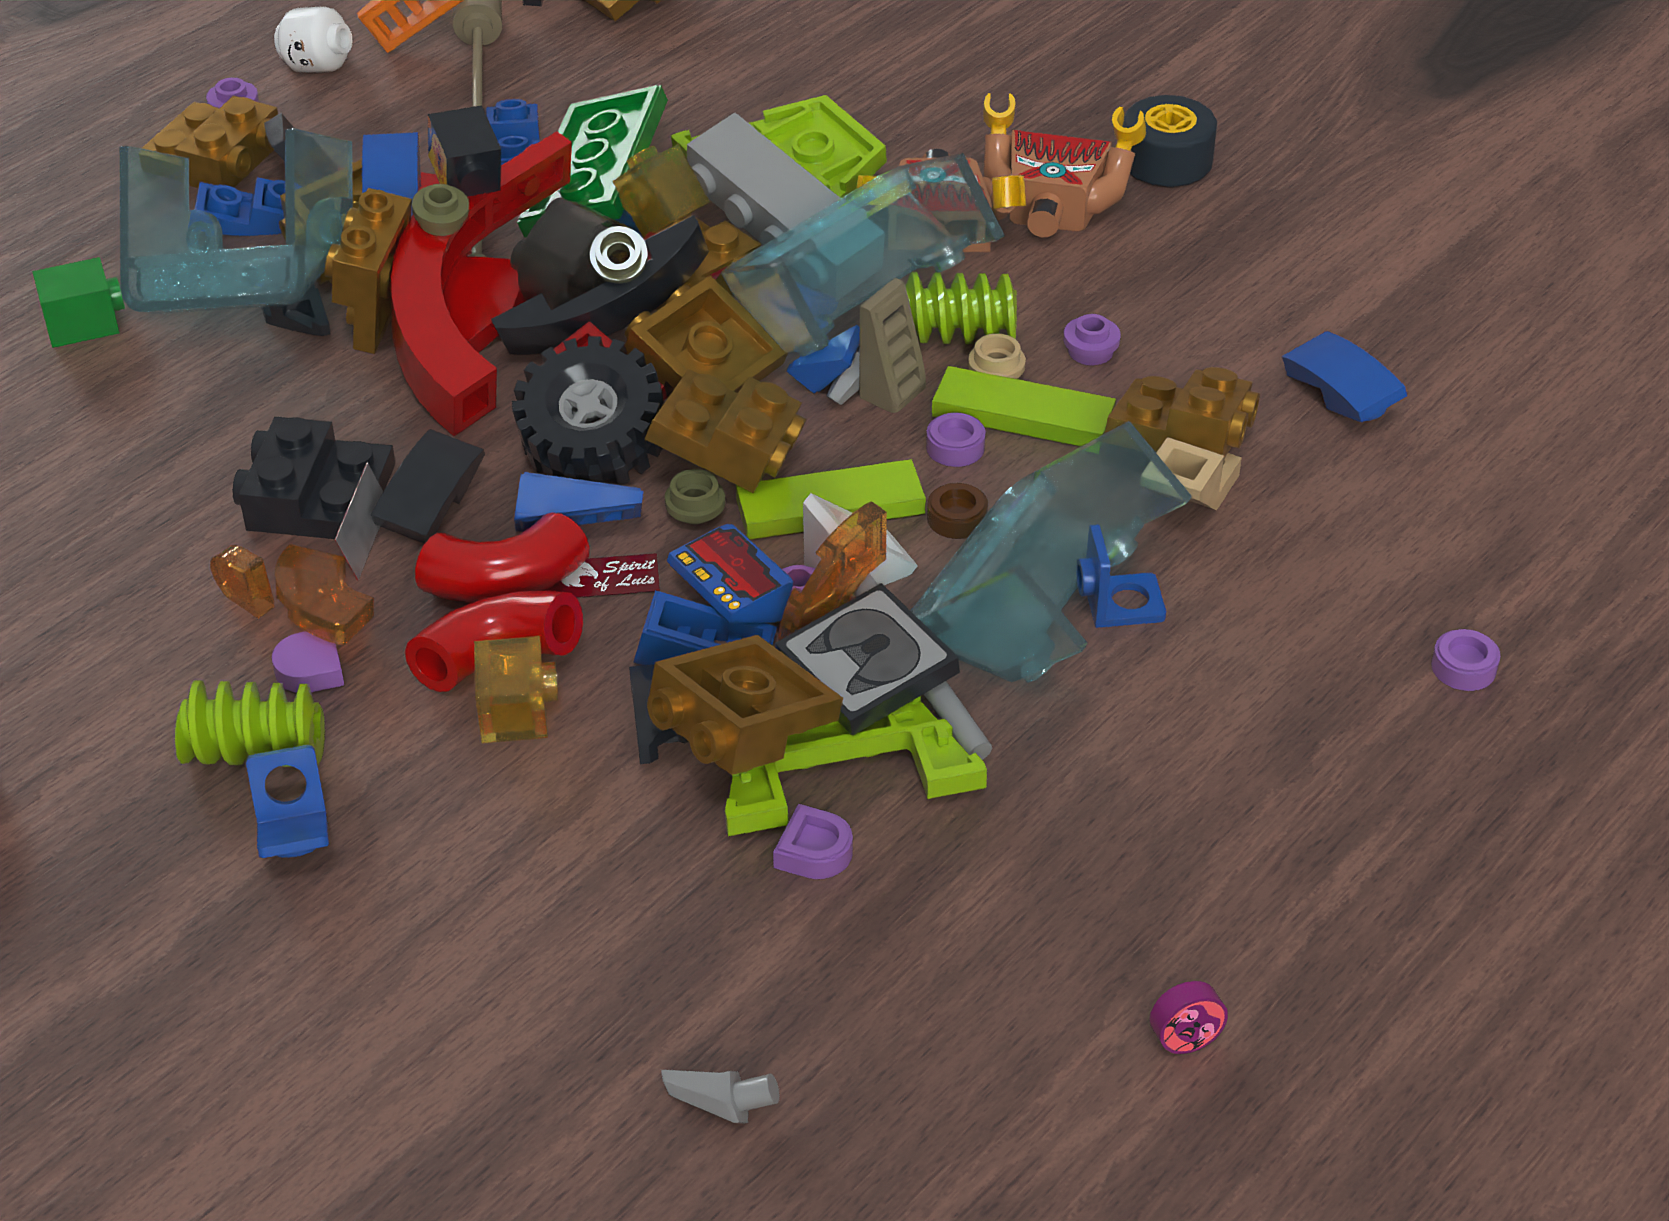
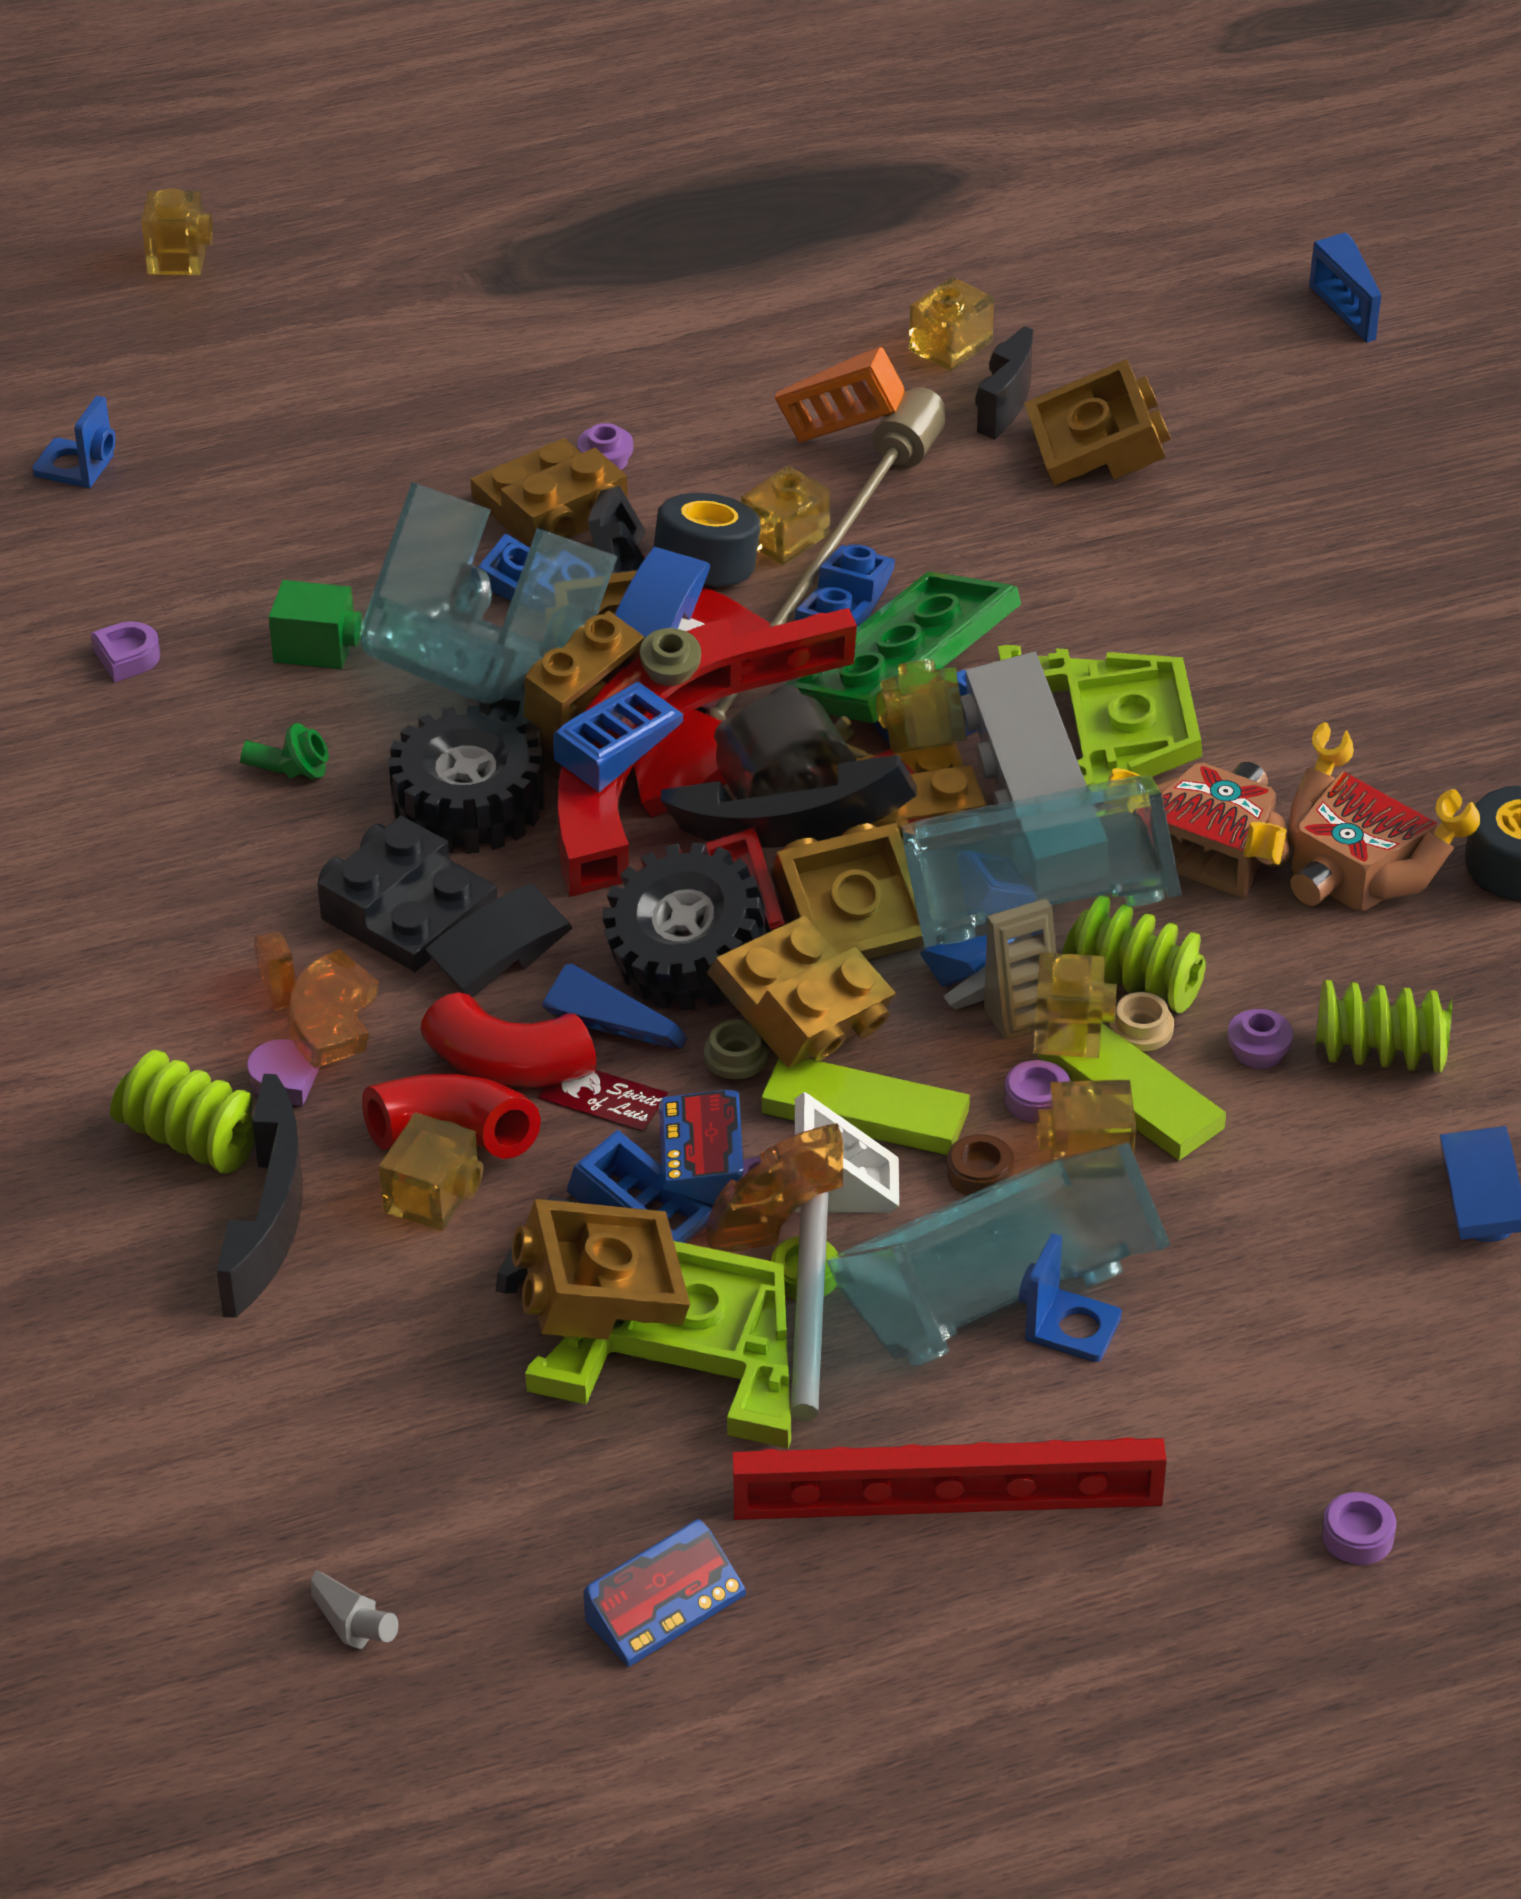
camera: 30 degrees right, 0 degrees up
(136, 406) = (302, 754): none -> green plate
(288, 826) = (165, 1217): blue bracket -> none
(306, 369) = (468, 777): none -> black wheel
(313, 39) = (722, 406): white head -> none
(358, 528) = (405, 958): flat silver sticker -> none
(360, 718) = (257, 1249): none -> black slope
(374, 116) = (713, 531): none -> black wheel
(423, 89) = (790, 512): none -> clear yellow brick
(431, 296) = (601, 766): none -> blue slope
(465, 150) = (725, 603): black brick -> none
(618, 239) = (794, 756): plate -> none
(814, 844) = (595, 1432): medium lavender tile -> none
(871, 656) = (752, 1276): tile -> none
(951, 358) = (1072, 1005): none -> clear yellow brick
(981, 953) = (661, 1593): none -> slope
(1024, 440) = (1086, 1117): none -> clear yellow brick
(1136, 755) = (948, 1478): none -> red plate
(1180, 294) = (1383, 1026): none -> lime piece
(1188, 1017) = (791, 1735): magenta tile -> none
(1201, 471) = (1230, 1229): tan slope -> none
(1205, 413) = (1272, 1161): pearl gold plate -> none

